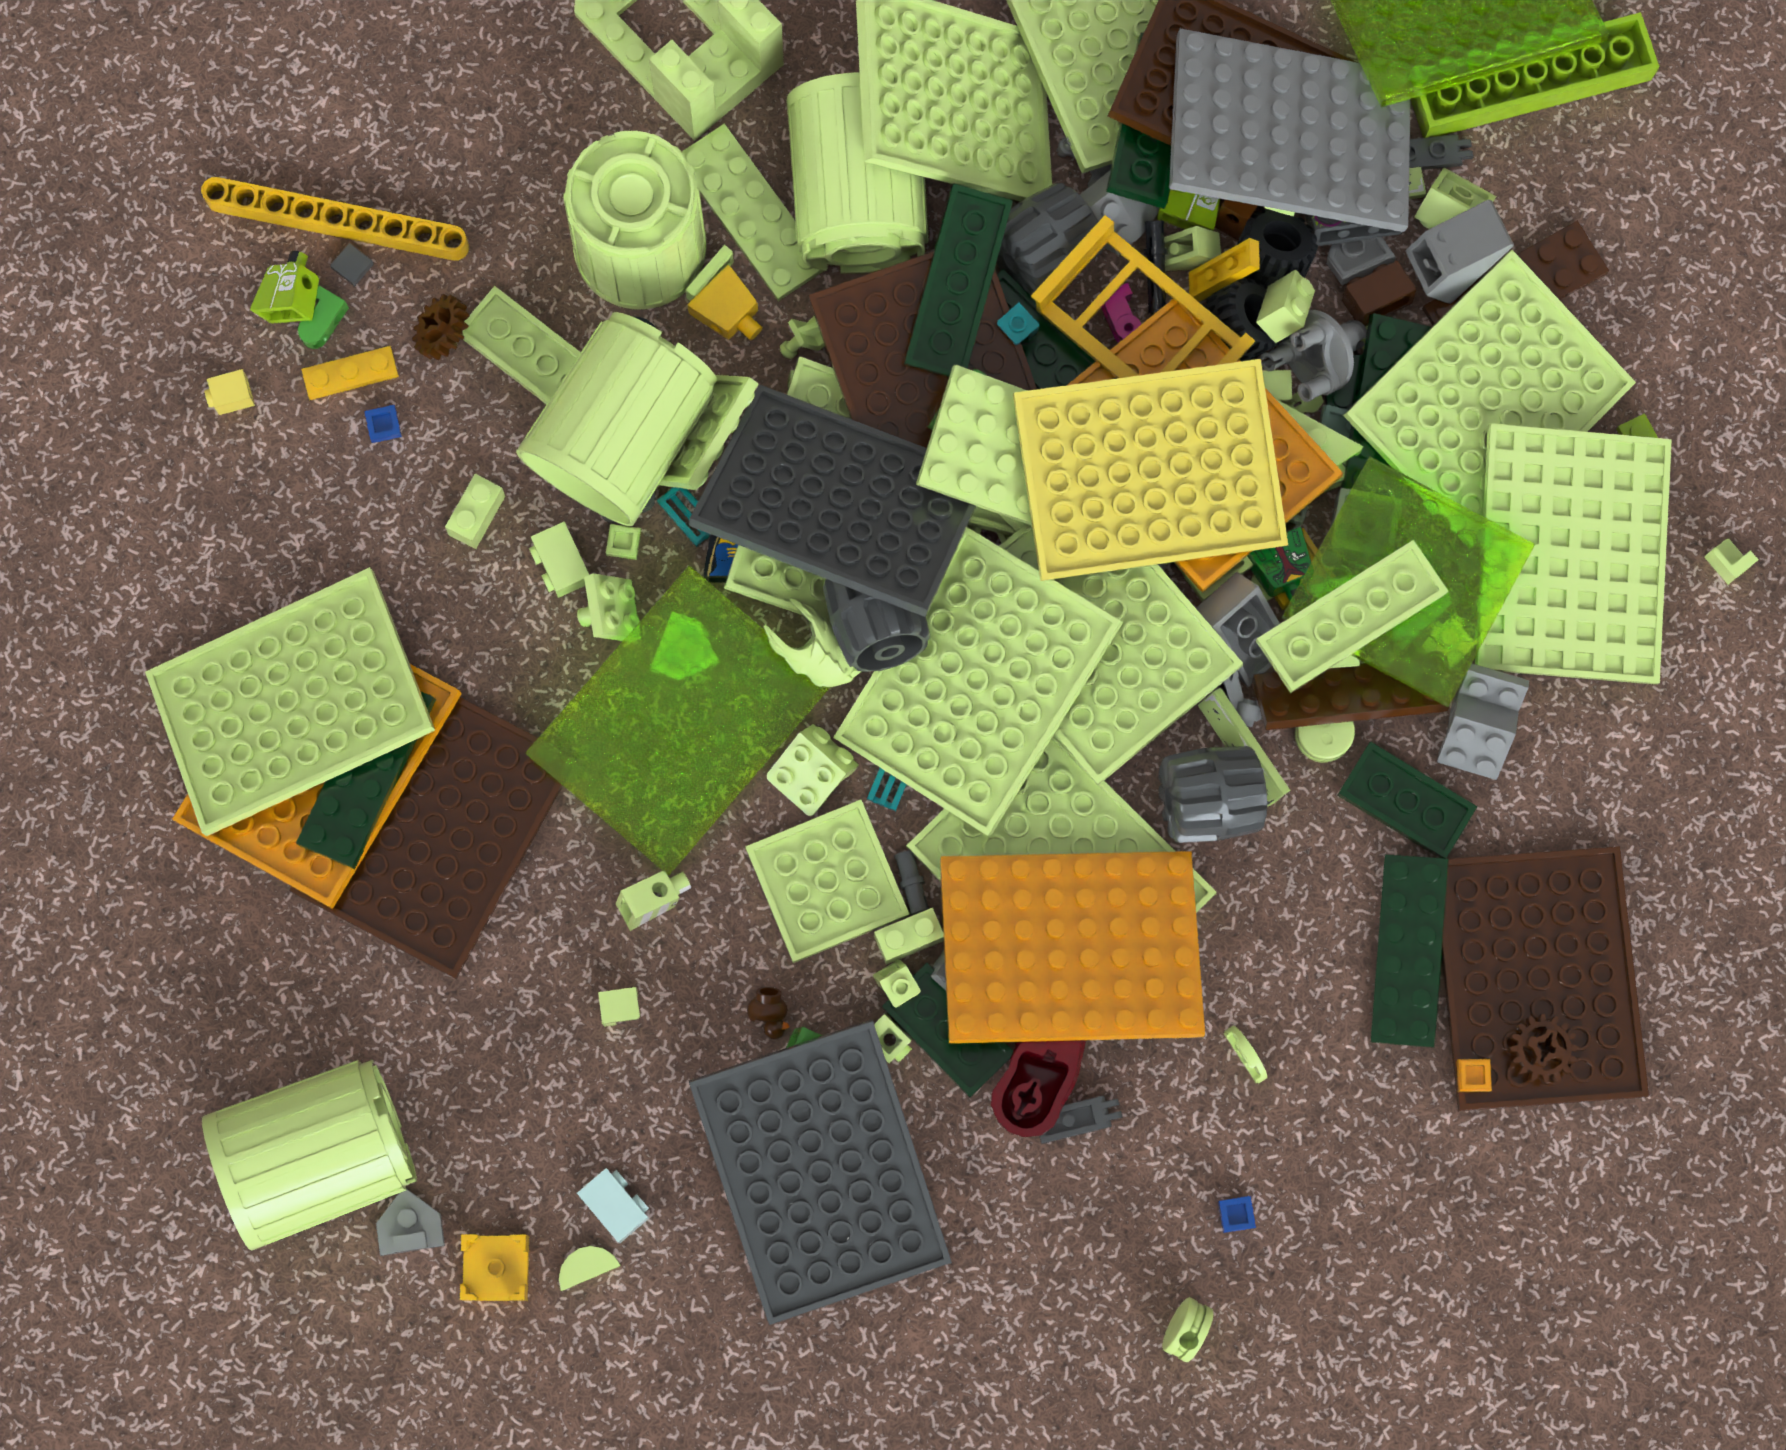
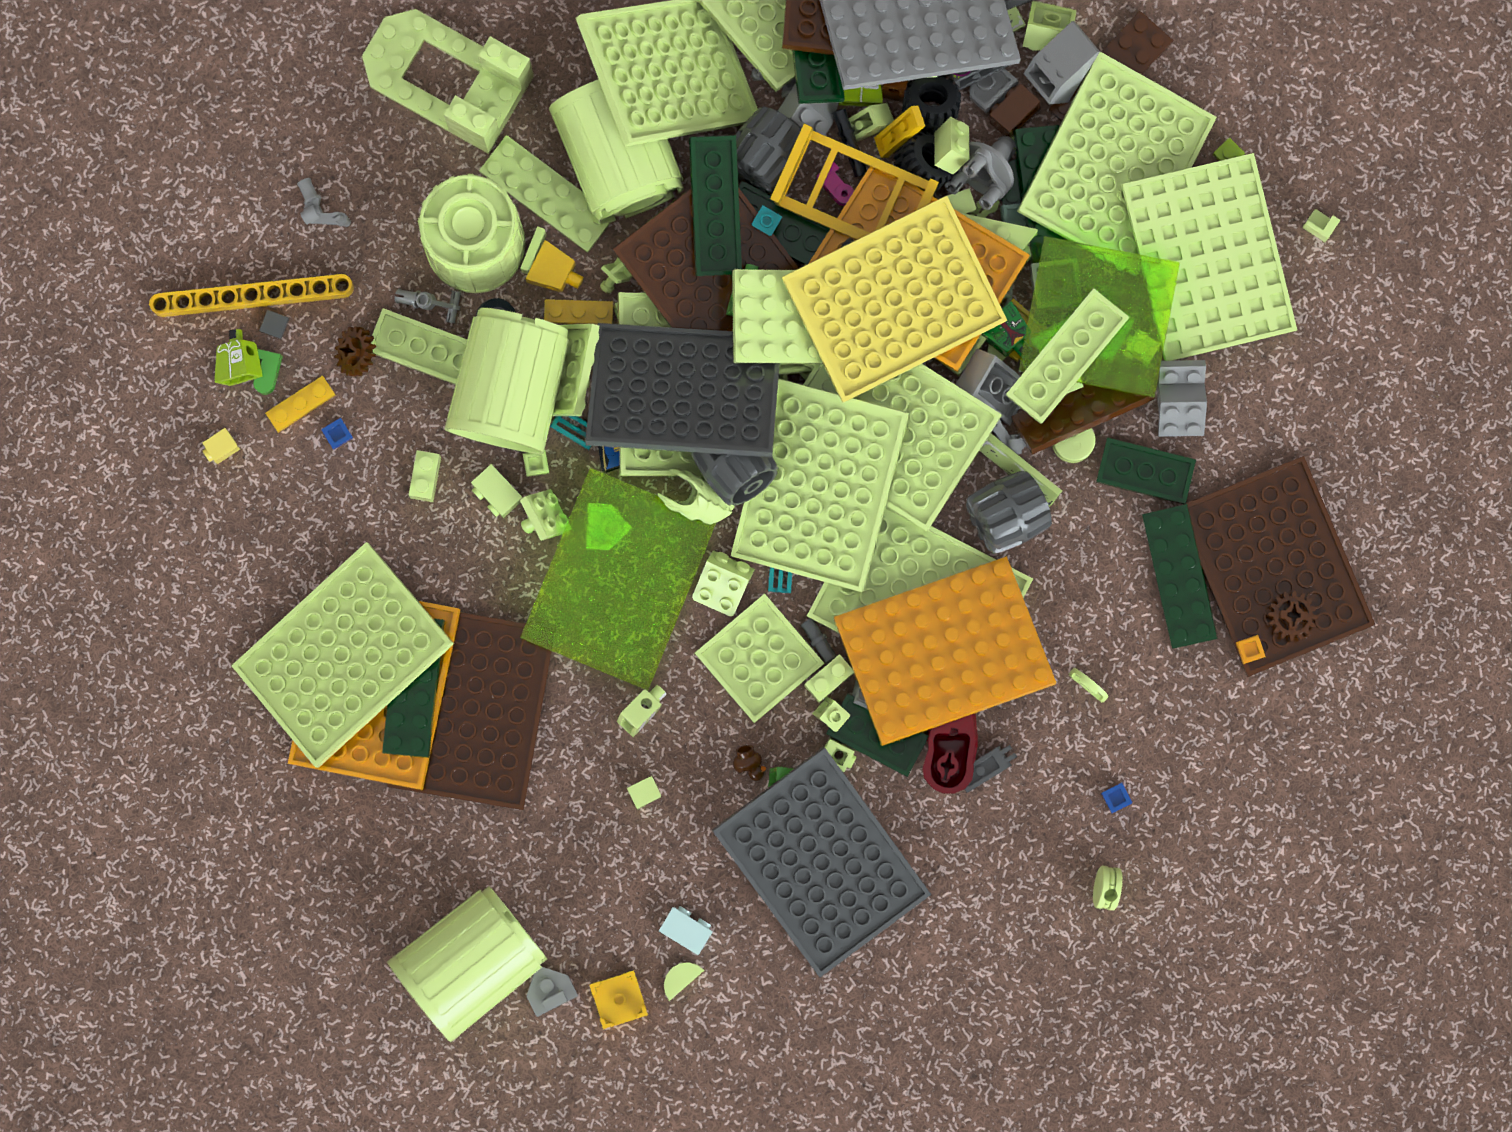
camera: 15 degrees left, 5 degrees up
(449, 142) = (312, 211): none -> light grey pin
(554, 294) = (428, 301): none -> light grey pin
(732, 363) = (578, 311): none -> yellow plate

